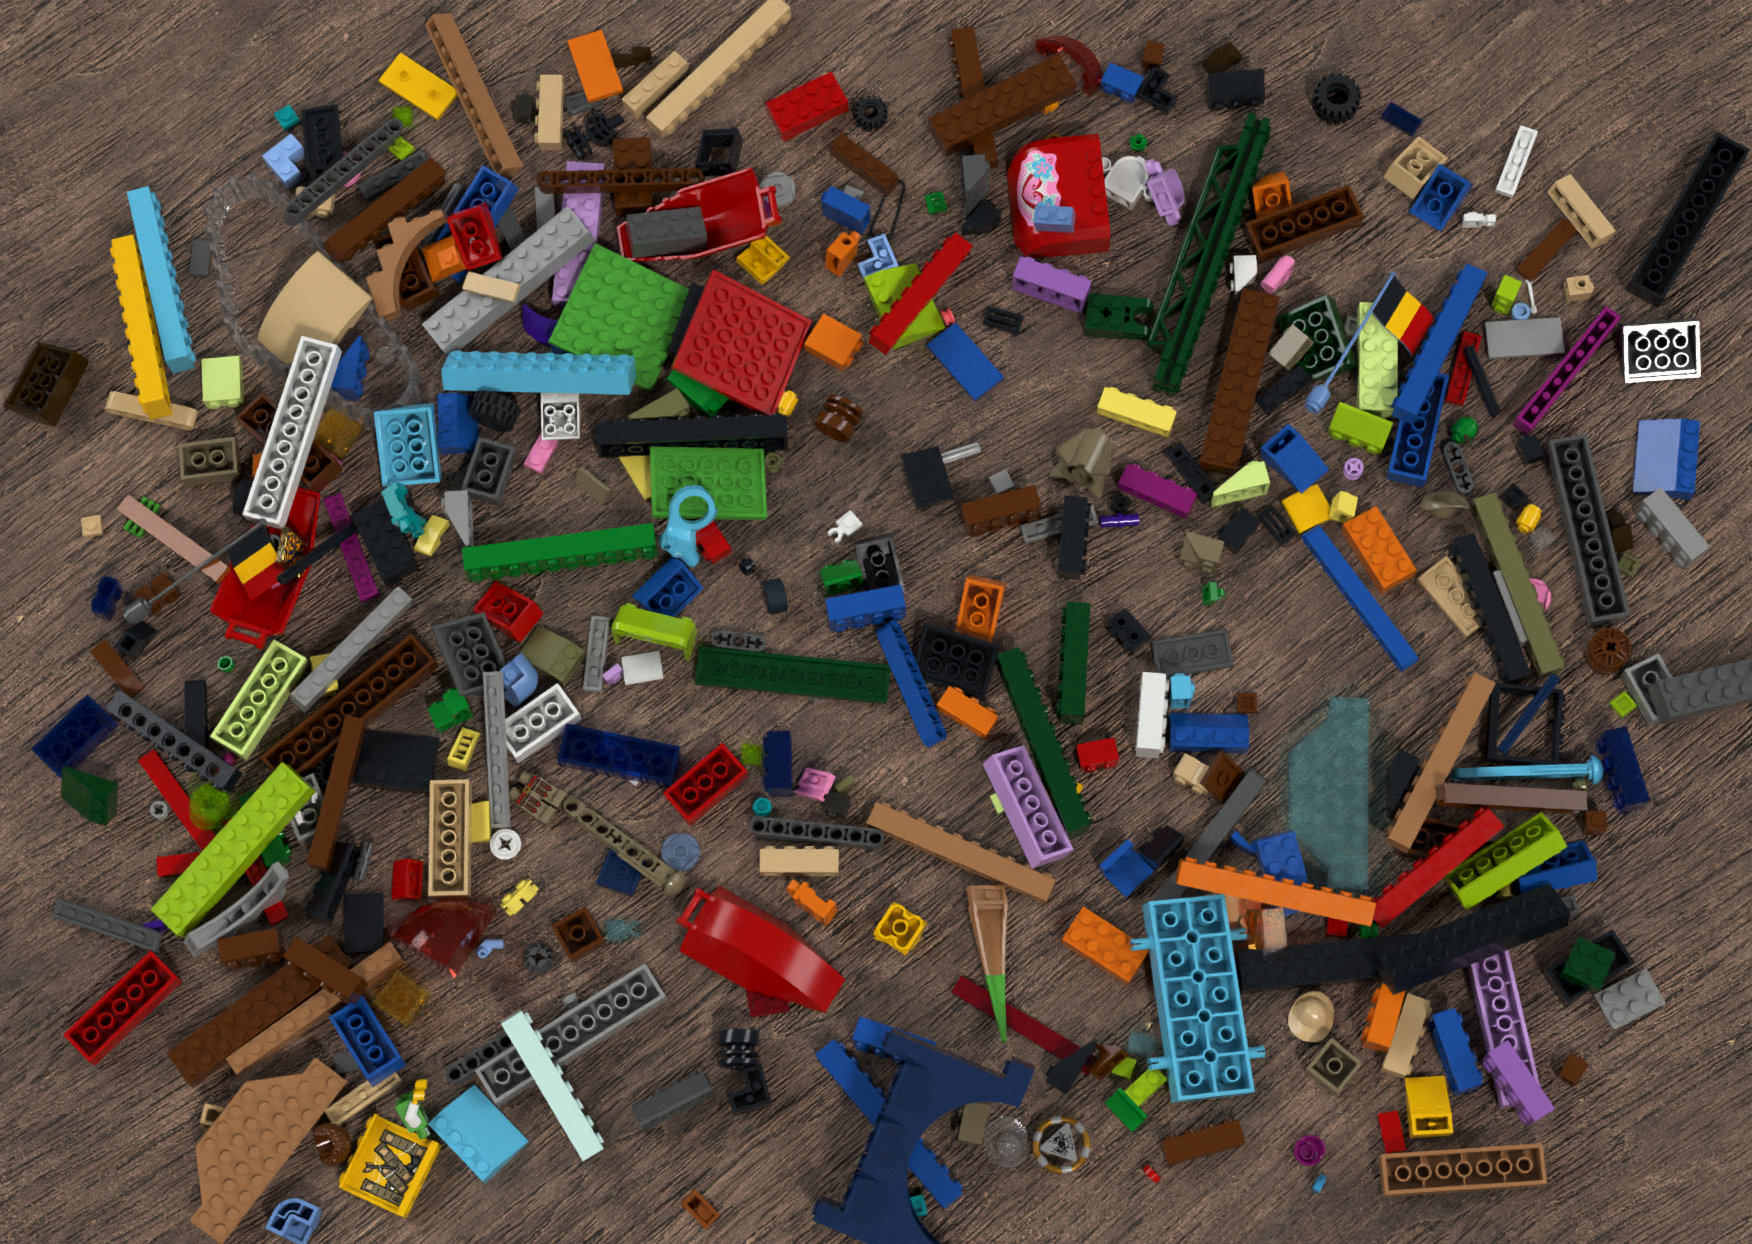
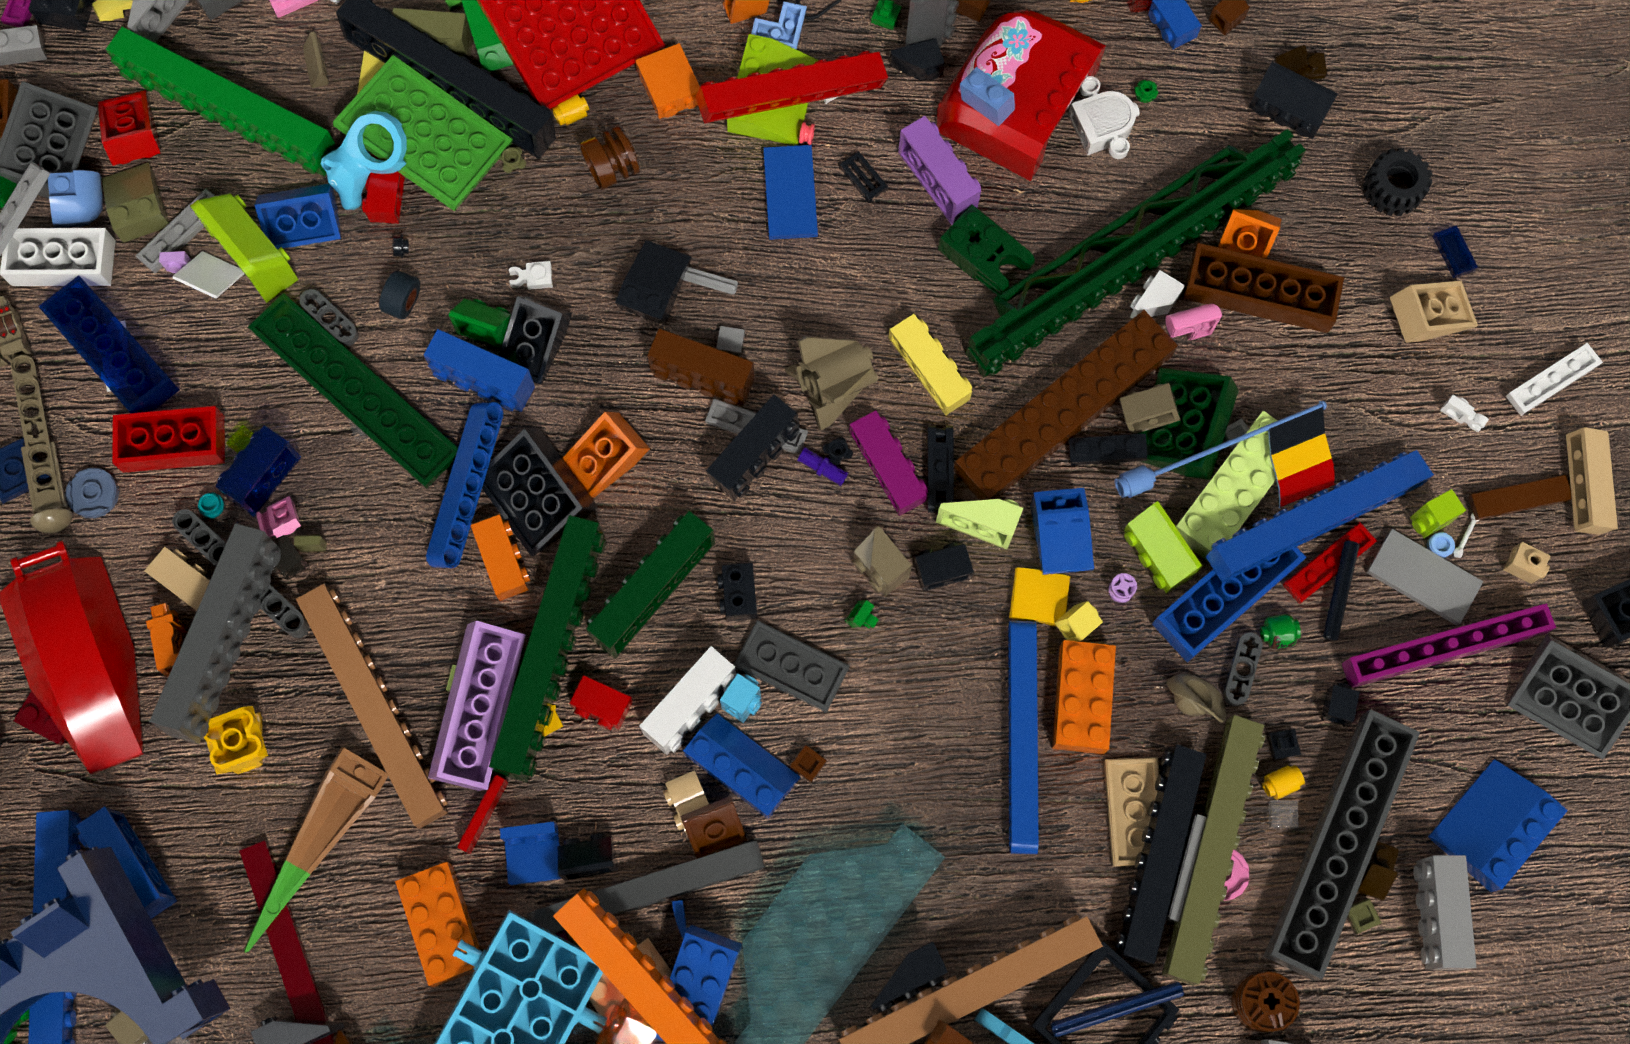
camera: 30 degrees right, 0 degrees up
(844, 868) = (216, 635): none -> dark grey brick
(1079, 868) = (482, 814): none -> red tile
(1152, 92) = (1200, 48): black brick -> none
(1165, 190) = (1135, 153): lavender piece -> none
(1292, 533) = (992, 611): black tile -> none
(1441, 197) = (1440, 361): blue slope -> none

